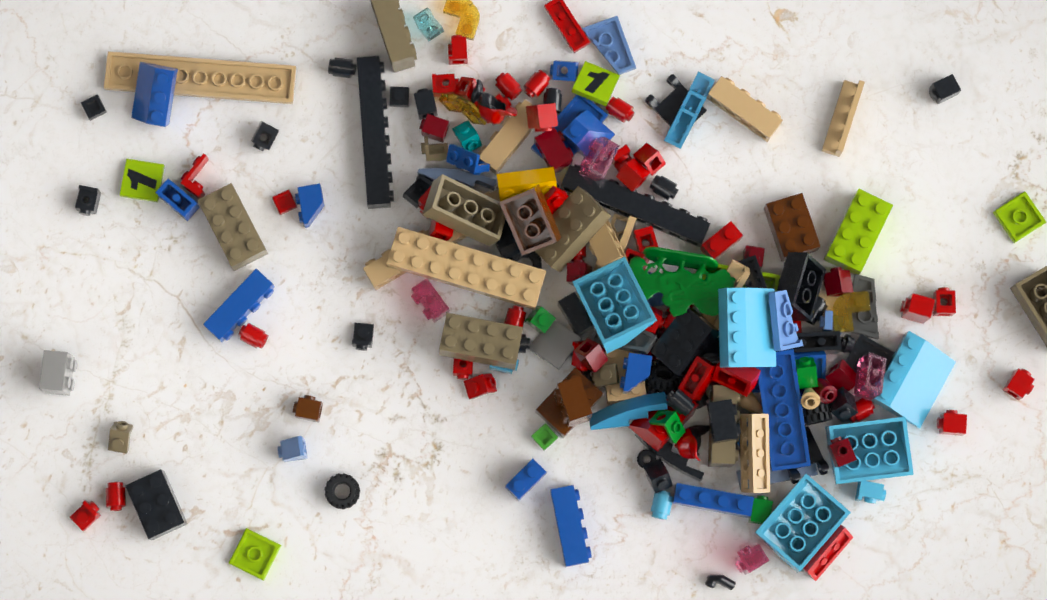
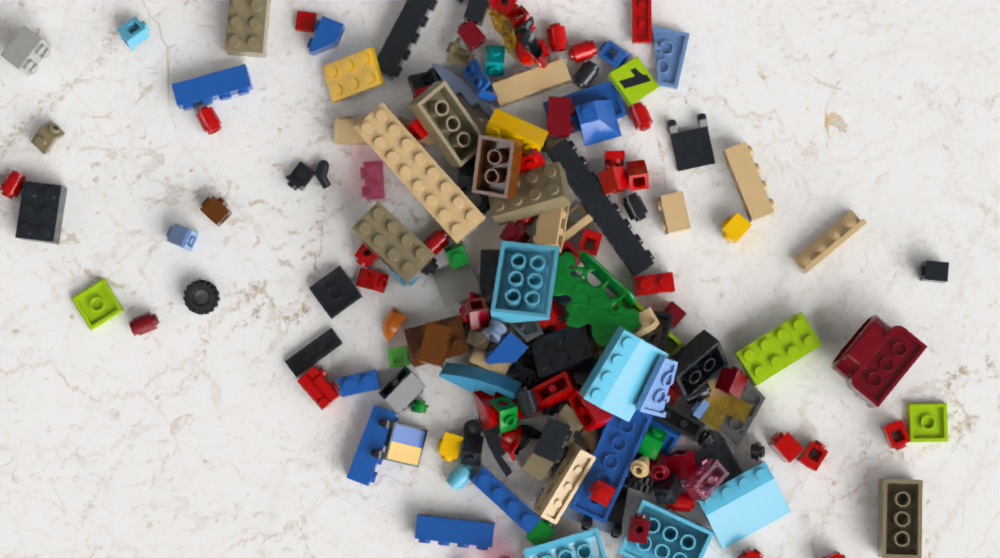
camera: 40 degrees right, 5 degrees up
(141, 301) = (134, 32): none -> medium azure brick
(306, 545) = (144, 323): none -> dark red brick
(355, 221) = (353, 75): none -> yellow plate
(379, 321) = (321, 173): none -> black arm
(455, 415) = (335, 292): none -> black plate
(469, 478) = (313, 352): none -> black tile
(493, 505) = (319, 387): none -> red brick
(521, 411) = (392, 323): none -> orange brick
(542, 117) = (565, 82): brick -> none
(566, 461) = (402, 390): none -> brick
(589, 468) = (419, 406): none -> green plate
(596, 506) = (403, 445): none -> flag
(599, 158) = (592, 148): clear pink brick -> none
(615, 359) = (494, 330): none -> sand blue wheel
(636, 485) = (450, 446): none -> yellow brick
(686, 554) = (454, 530): none -> blue brick
(689, 110) = (699, 153): dark azure slope -> none
(699, 172) = (674, 213): none -> tan brick
(758, 153) = (734, 228): none -> yellow brick
(791, 226) = (723, 308): reddish brown brick -> none
(792, 439) = (602, 492): none -> red brick
(896, 327) = (757, 451): none -> black plate
(946, 188) = (877, 359): none -> dark red brick
(1000, 235) = (898, 427): none -> red brick

